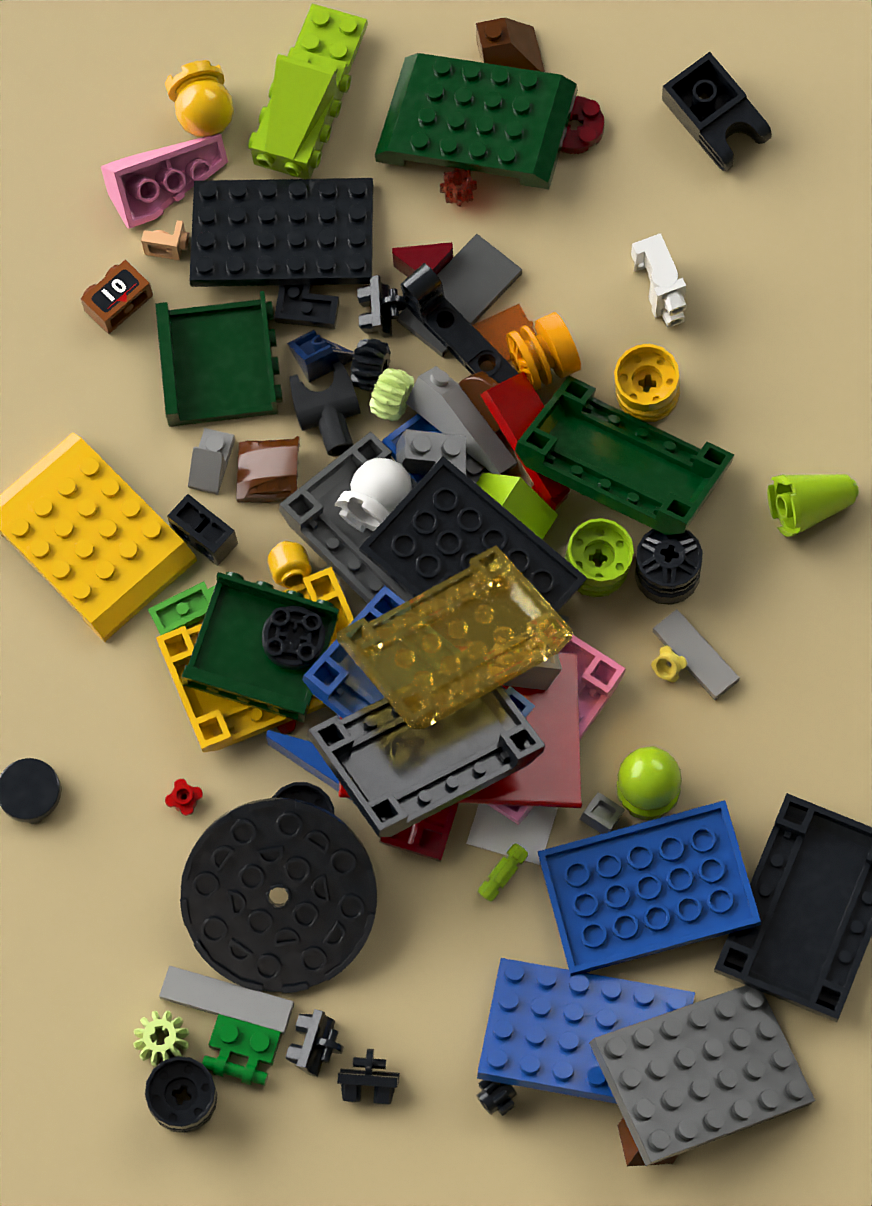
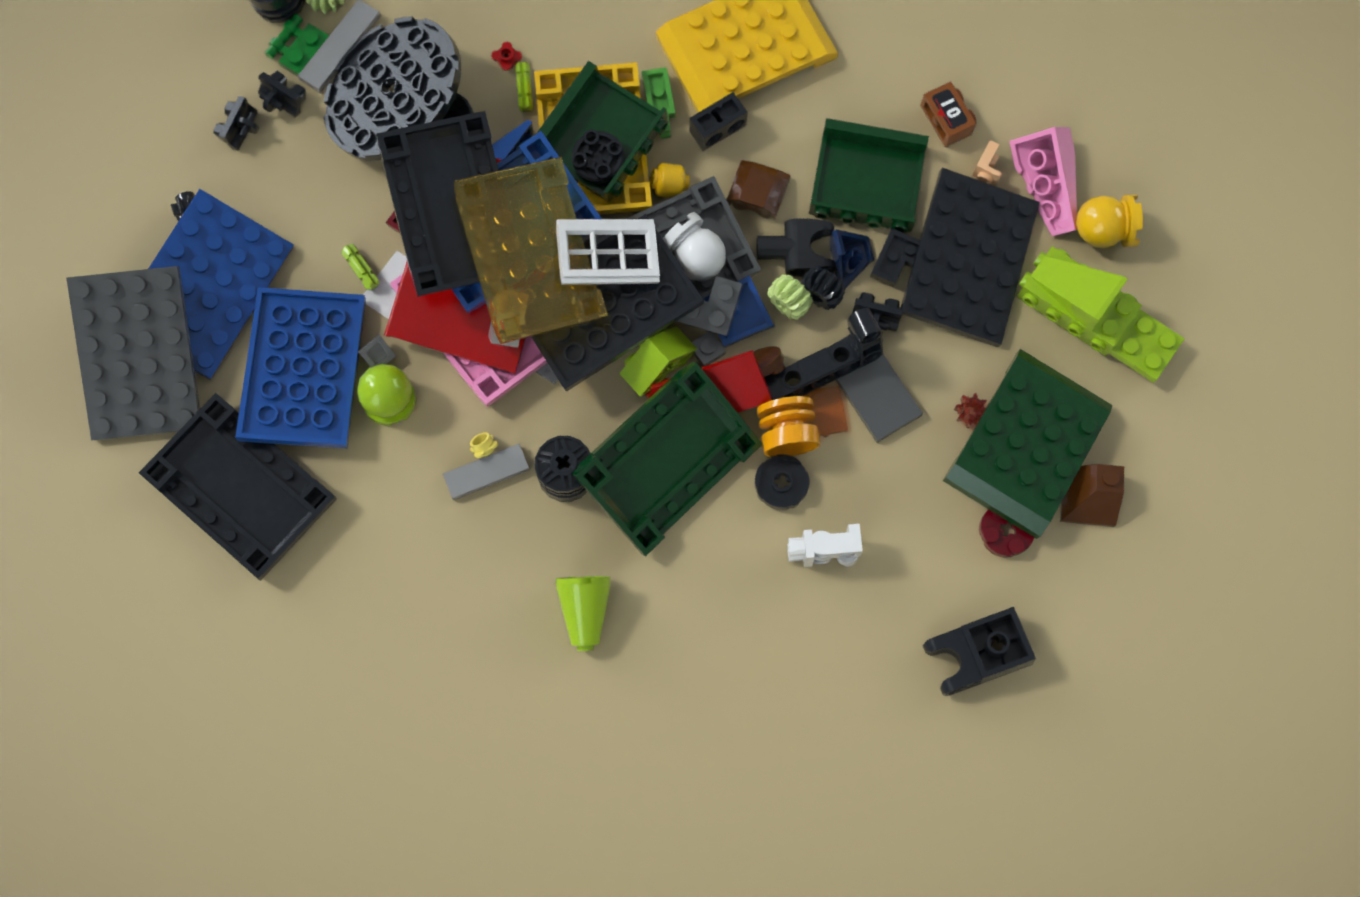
camera: 100 degrees right, 5 degrees up
(210, 461) = (778, 148): light grey slope -> none
(216, 765) = (524, 86): none -> lime axle
(412, 257) = (906, 360): dark red slope -> none
(451, 551) = (607, 227): none -> white piece
(452, 412) = (761, 336): light grey slope -> none
(602, 541) = (582, 400): lime wheel -> none
(612, 338) = (790, 495): none -> black plate
(647, 366) = (732, 488): yellow wheel -> none

